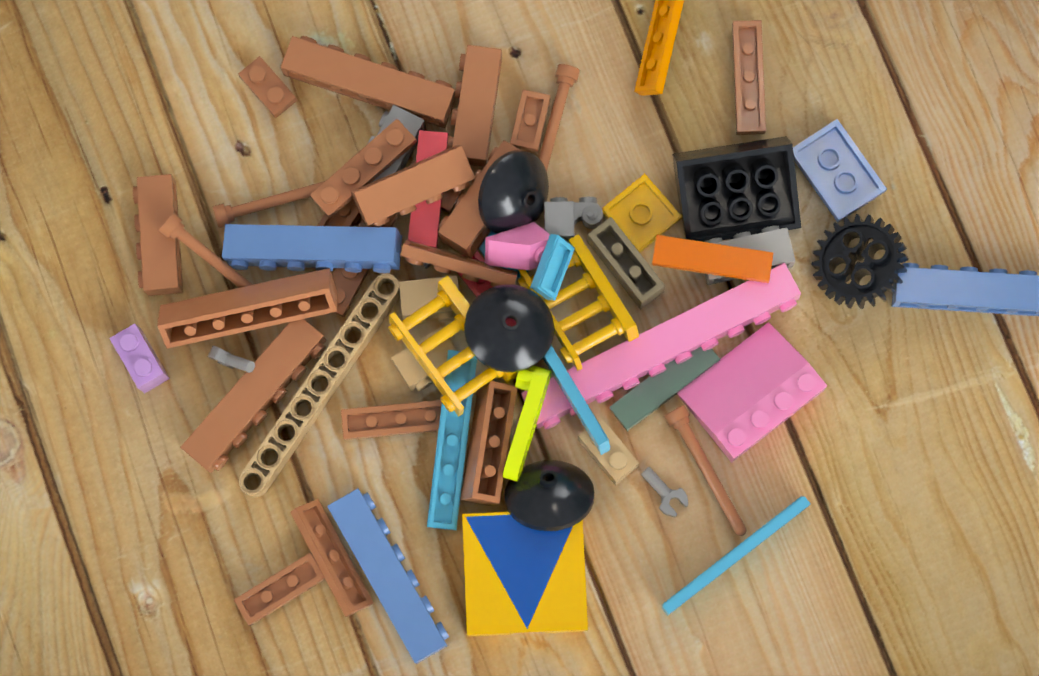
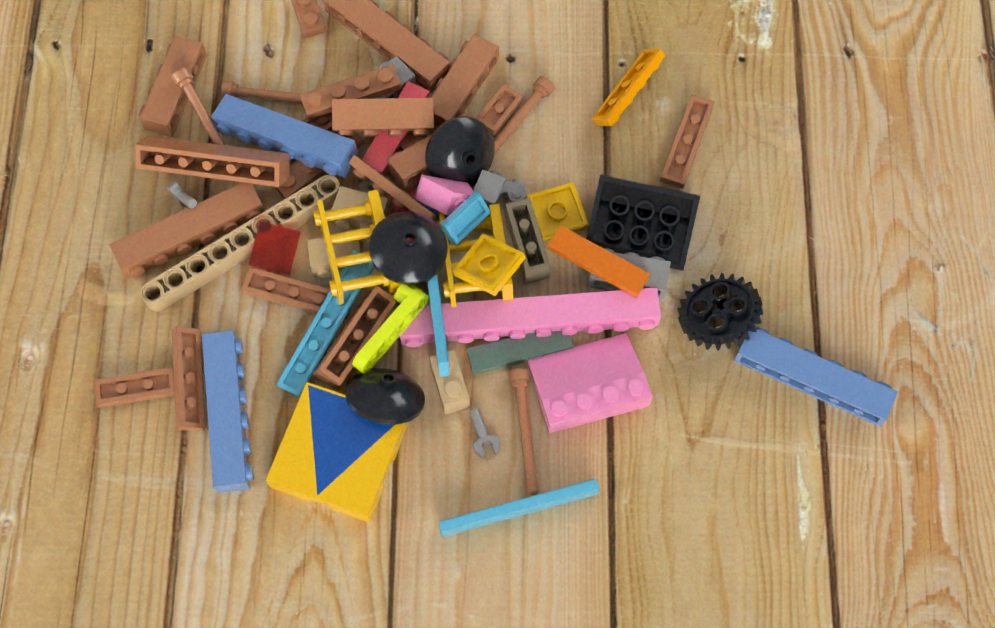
camera: 15 degrees right, 10 degrees down
(139, 358) = (112, 168): lavender brick -> none
(358, 378) = (274, 248): none -> clear red piece
(601, 311) = (489, 264): none -> yellow tile
(837, 170) = (731, 237): medium blue plate -> none

